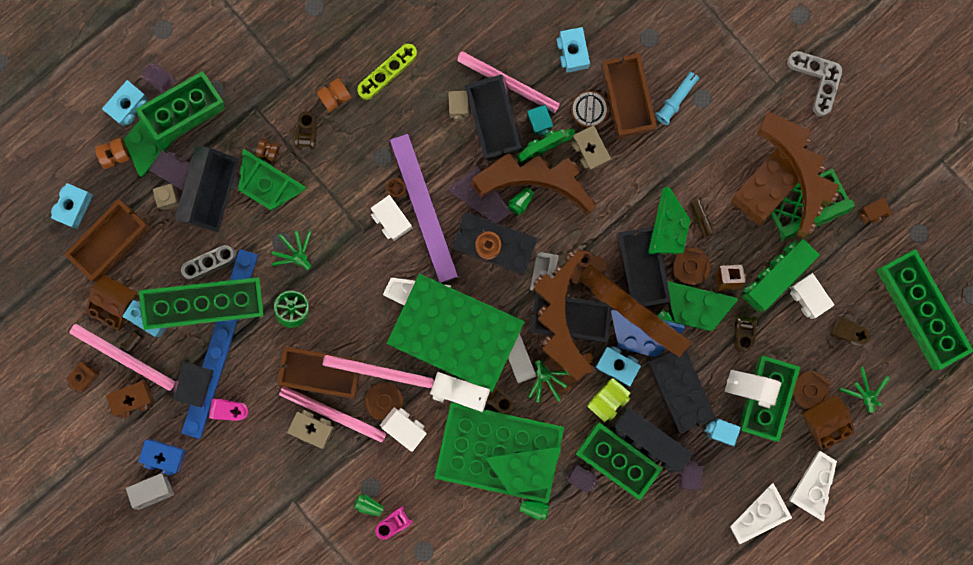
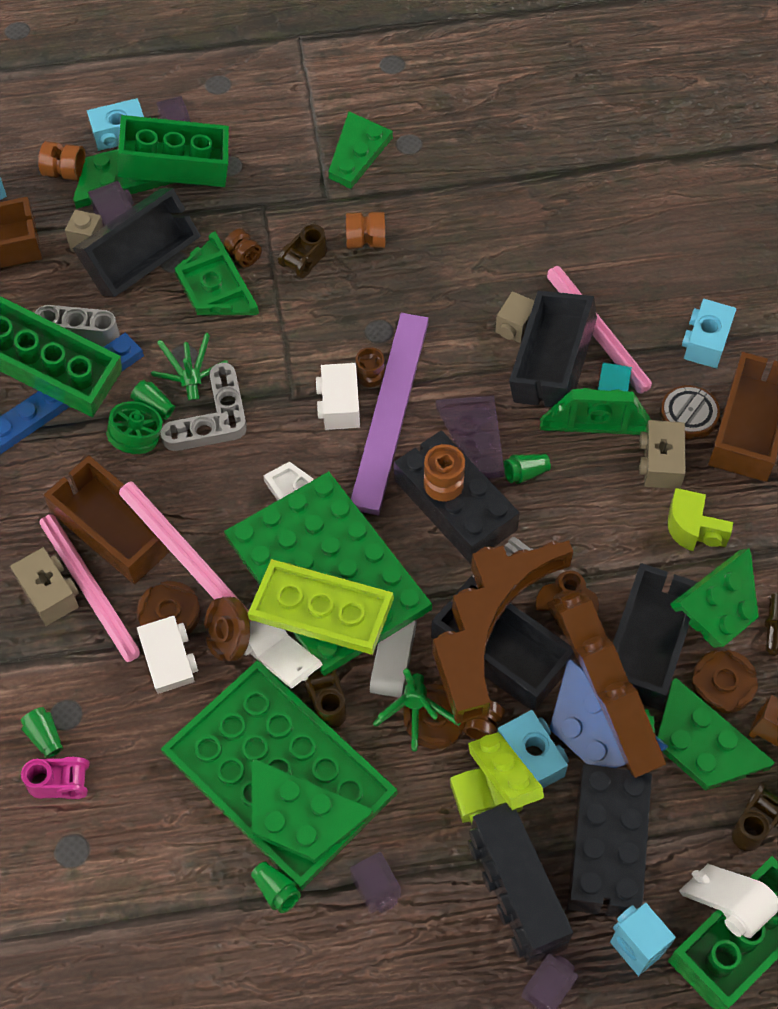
camera: 35 degrees right, 25 degrees down
(286, 31) = (357, 149): none -> green wing
(287, 283) = (149, 394): none -> green cone
(332, 274) = (217, 421): none -> light grey beam
(384, 69) = (448, 240): lime beam -> none
(425, 396) = (227, 628): none -> reddish brown tile
(471, 361) = (321, 606): none -> lime plate
(536, 172) = (566, 438): reddish brown arch -> none
(614, 390) = (506, 770): none -> lime plate
(618, 461) = (449, 887): green brick -> none
(625, 185) = (689, 525): none -> lime brick

